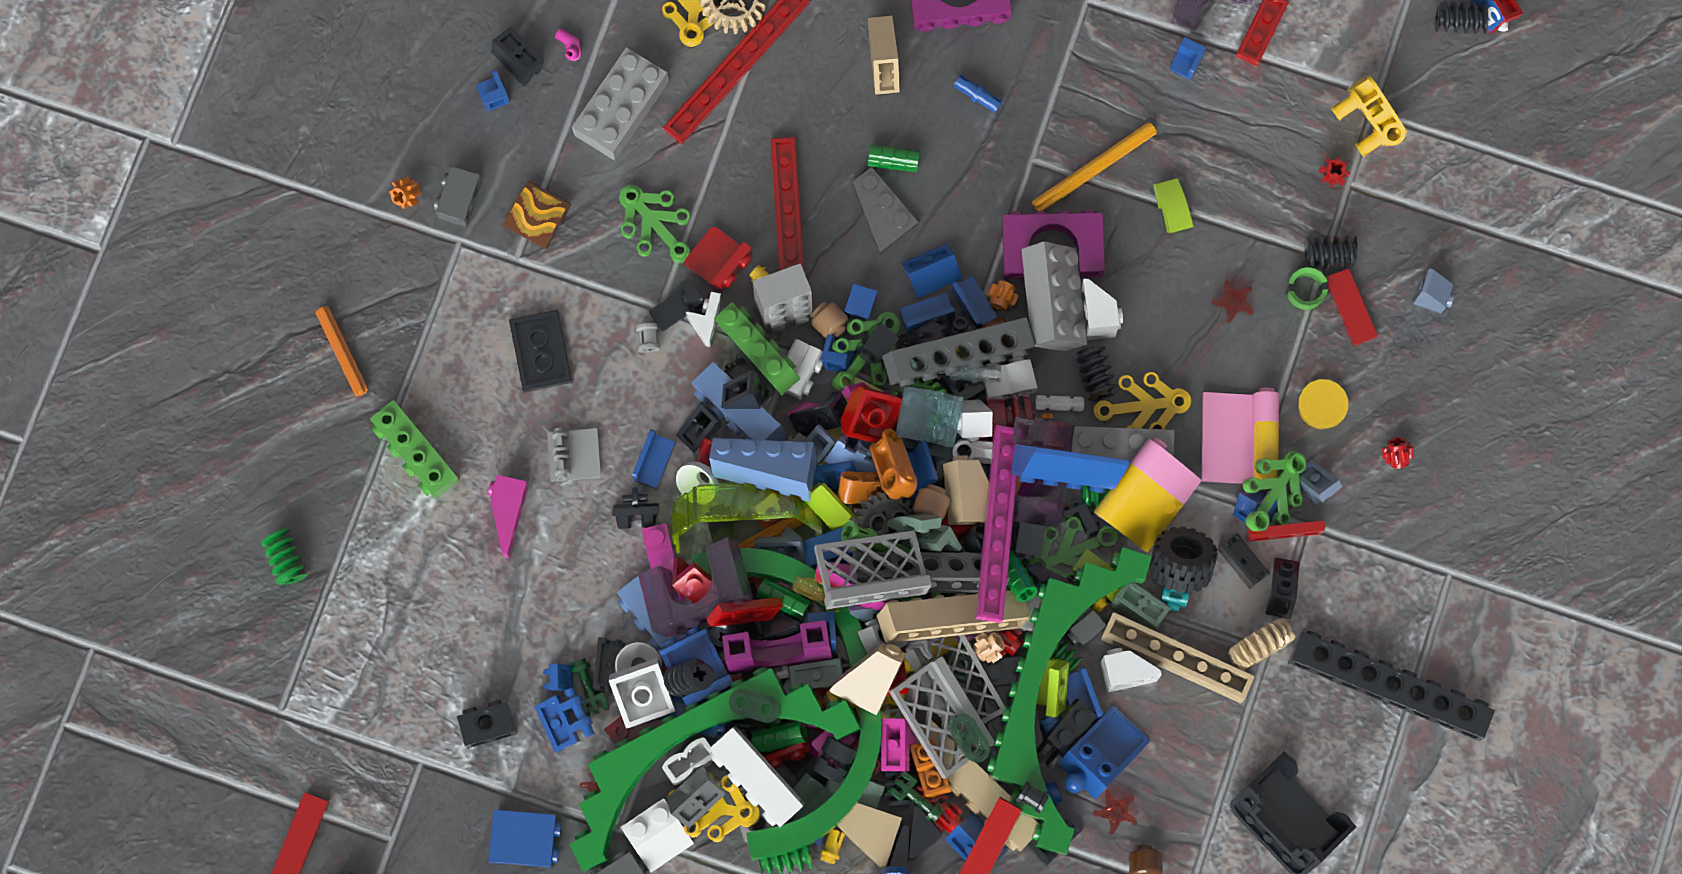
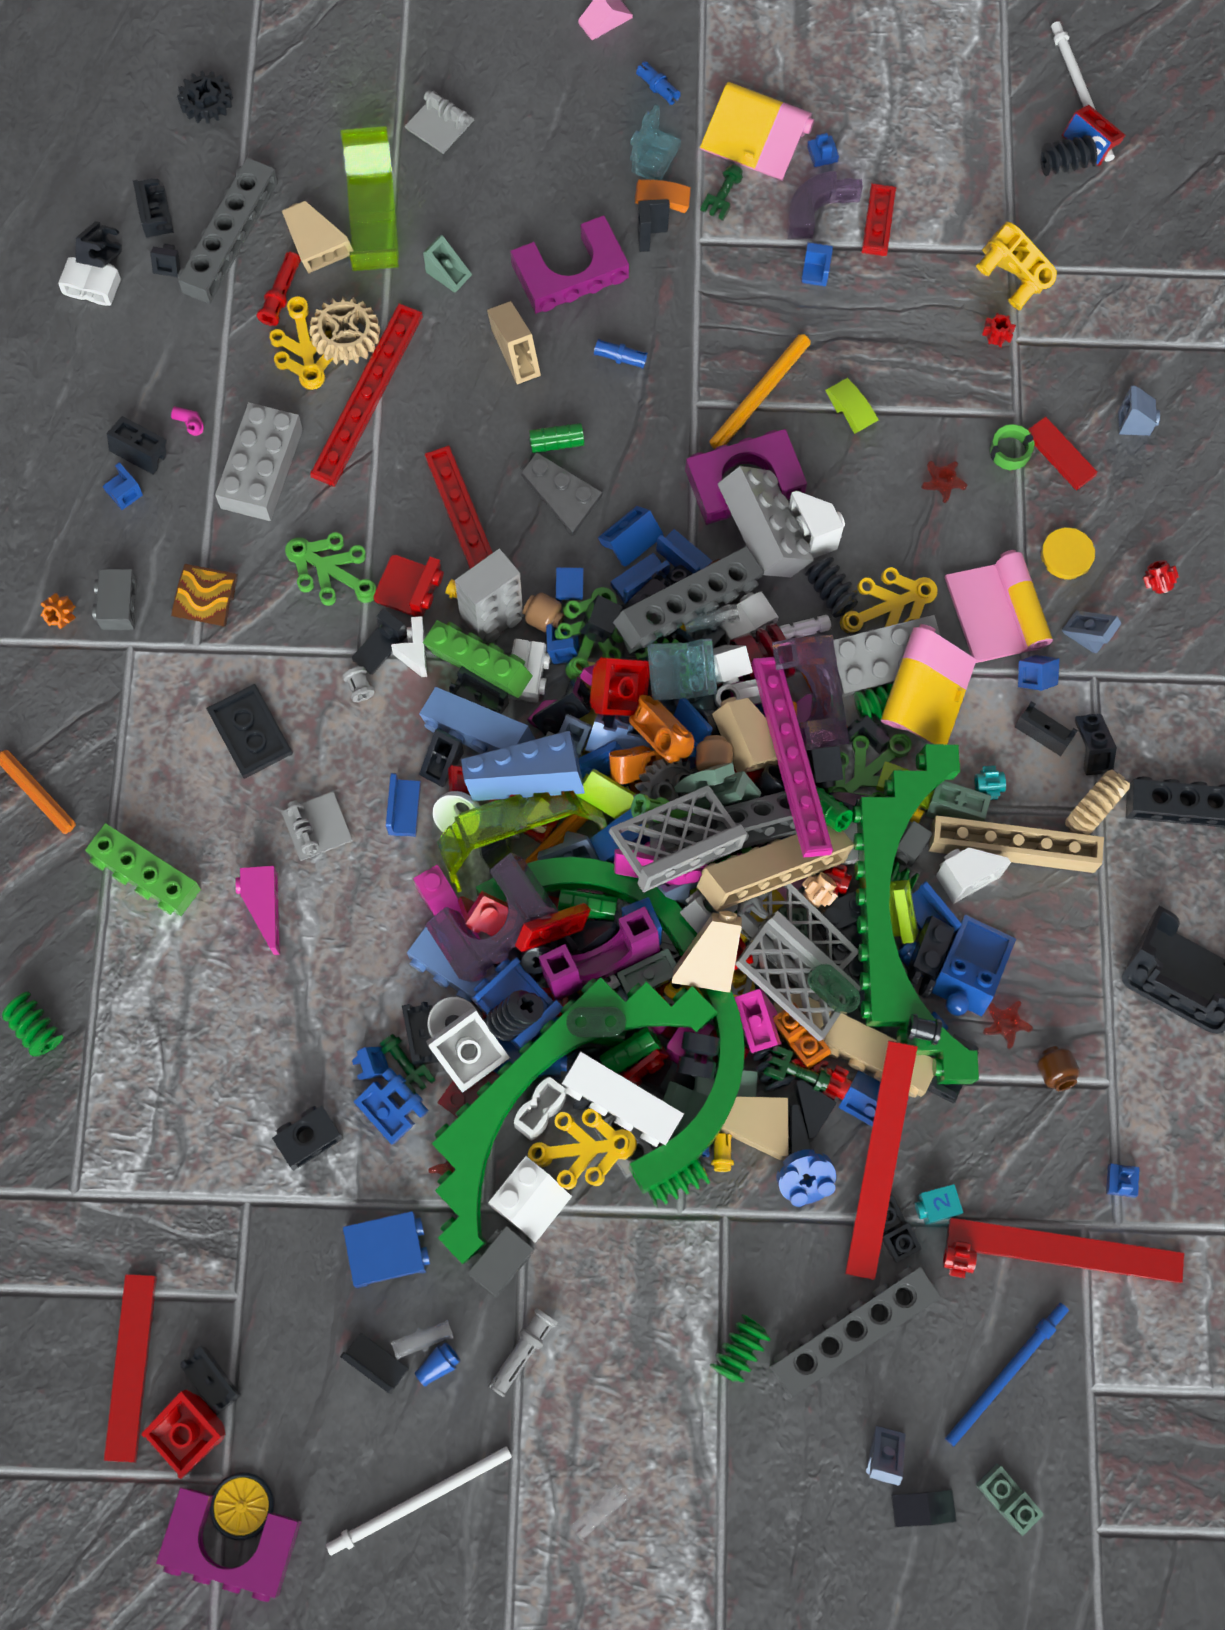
camera: 20 degrees left, 5 degrees down
(624, 511) = (412, 860): black hips -> none
(695, 796) = (560, 1143): dark grey hinge -> none
(742, 392) = (477, 704): black slope -> none
(809, 588) = (613, 882): clear yellow plate -> none
(1002, 295) = (711, 538): orange gear -> none
(1067, 467) = (843, 677): slope -> none
(1183, 559) = (989, 742): black tyre -> none
(1286, 531) = (1077, 686): red tile -> none
(1291, 466) = (1061, 618): bright green plant -> none
(1331, 251) = (1022, 403): black piece -> none

